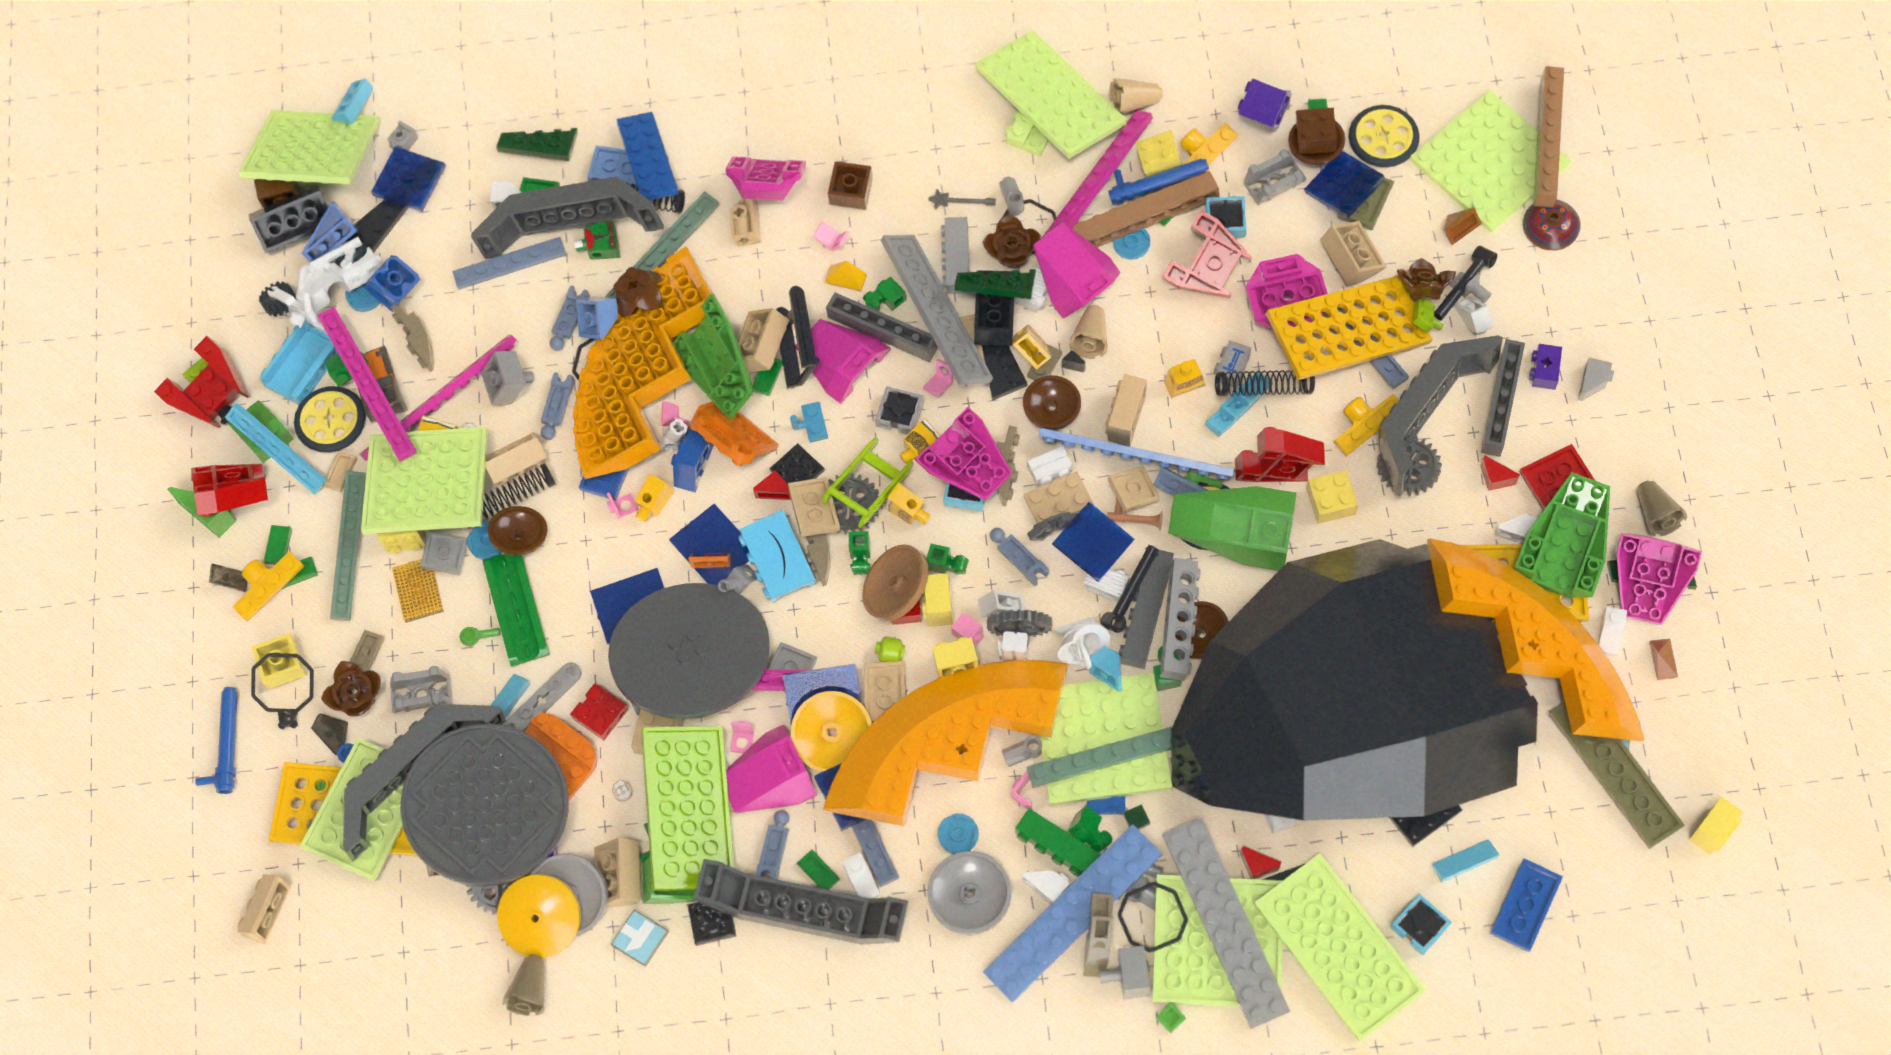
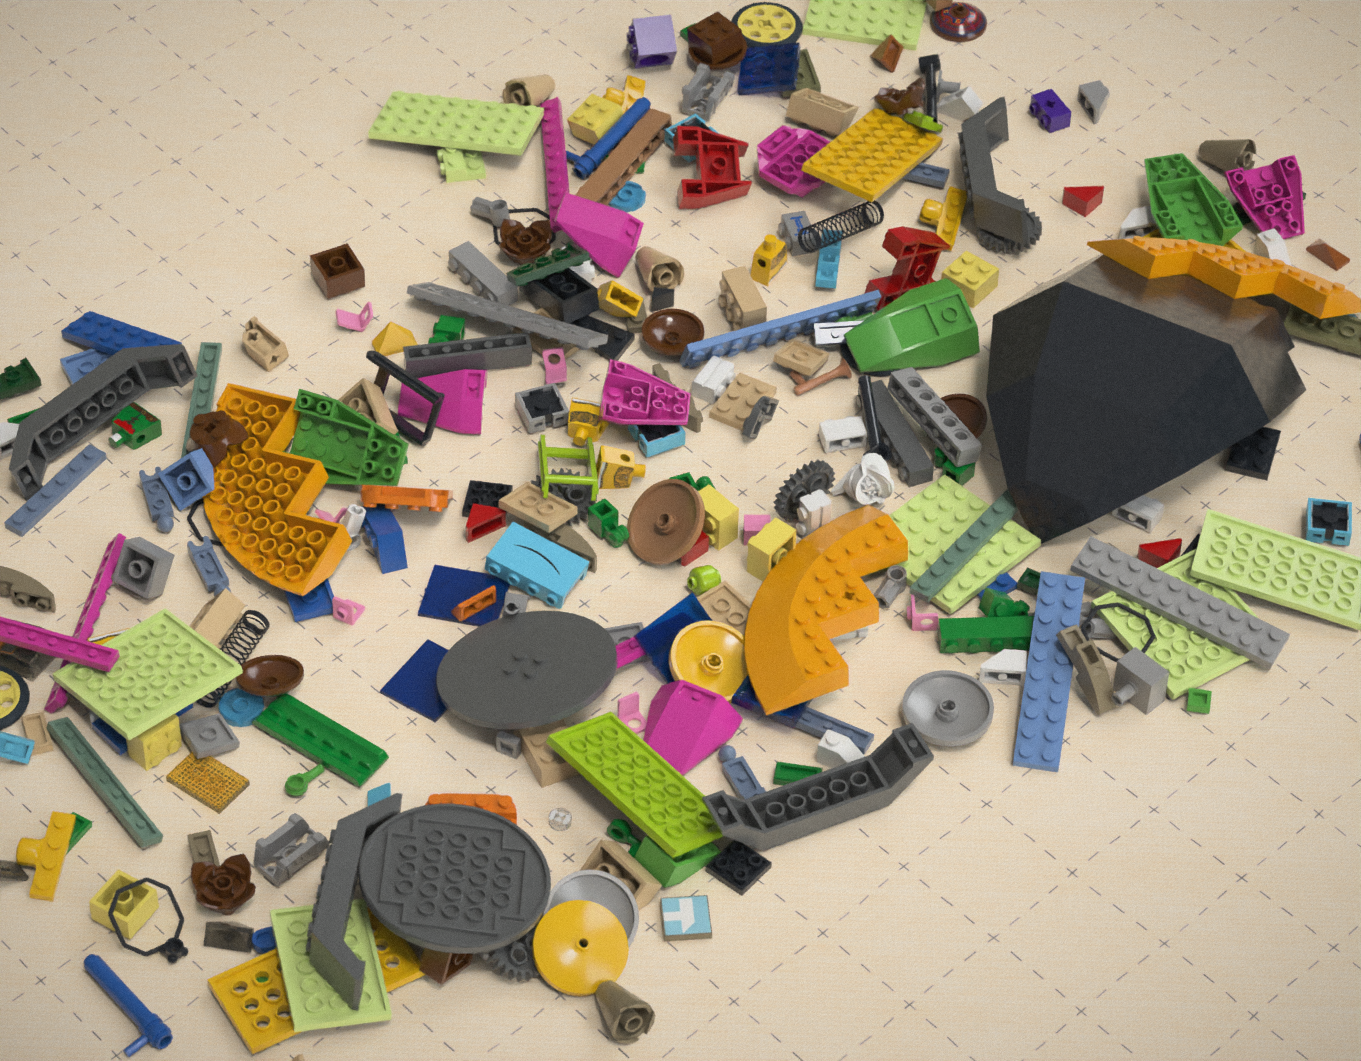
camera: 45 degrees left, 20 degrees down
(277, 544) = (27, 821): green tile -> none
(557, 686) = (419, 778): light grey piece -> none
(599, 711) = (480, 770): red piece -> none
(652, 497) = (376, 586): yellow torso -> none
(764, 177) = (257, 301): dark pink piece -> none
(812, 422) = (466, 457): dark azure plate -> none
(942, 199) = (428, 247): piece -> none
(958, 833) = (891, 679): dark azure tile -> none
(998, 601) = (763, 496): white slope -> none
(1019, 556) = (750, 456): sand blue plate -> none
(1093, 541) = (806, 406): clear blue piece -> none
(1106, 667) = (909, 487): medium azure slope -> none
(1465, 860) = (1317, 463): medium azure slope -> none
(1503, 397) = (1039, 145): dark grey brick -> none
(1550, 472) = (1127, 179): red plate -> none

